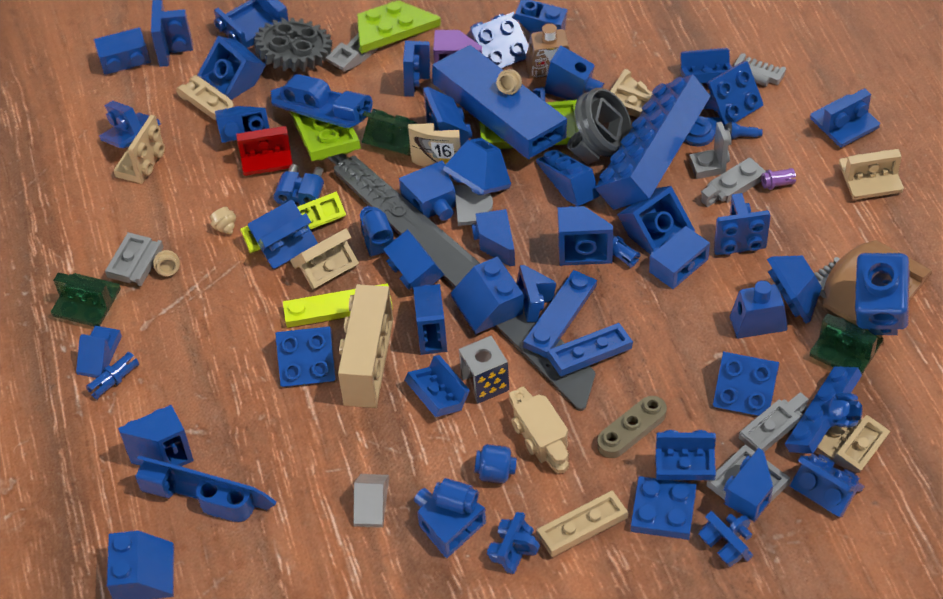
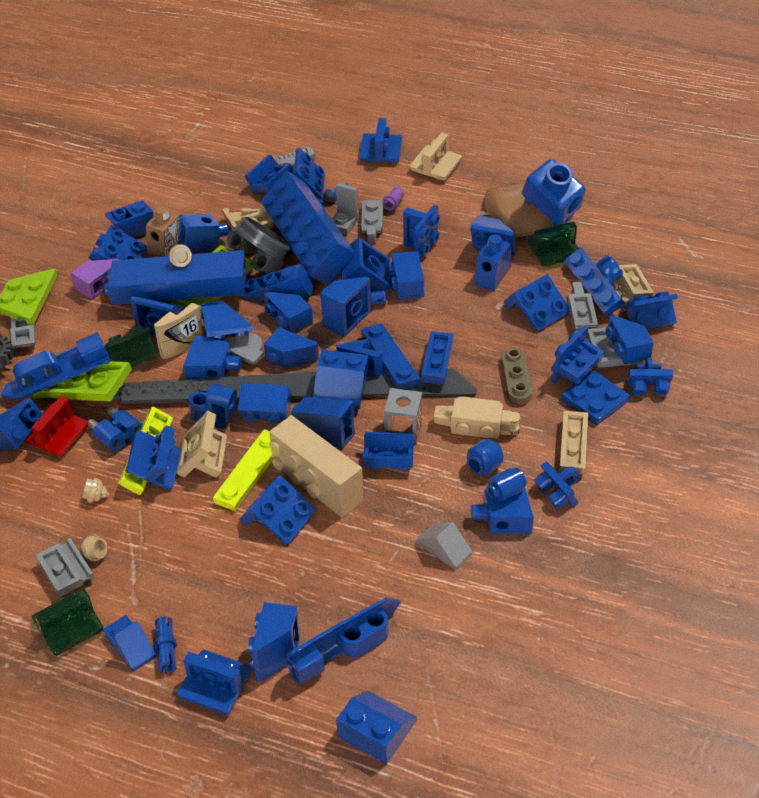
camera: 55 degrees left, 5 degrees down
(97, 429) = (213, 680): none -> blue bracket
(415, 65) = (89, 301): blue bracket -> none
(542, 205) = (288, 310): none -> blue slope

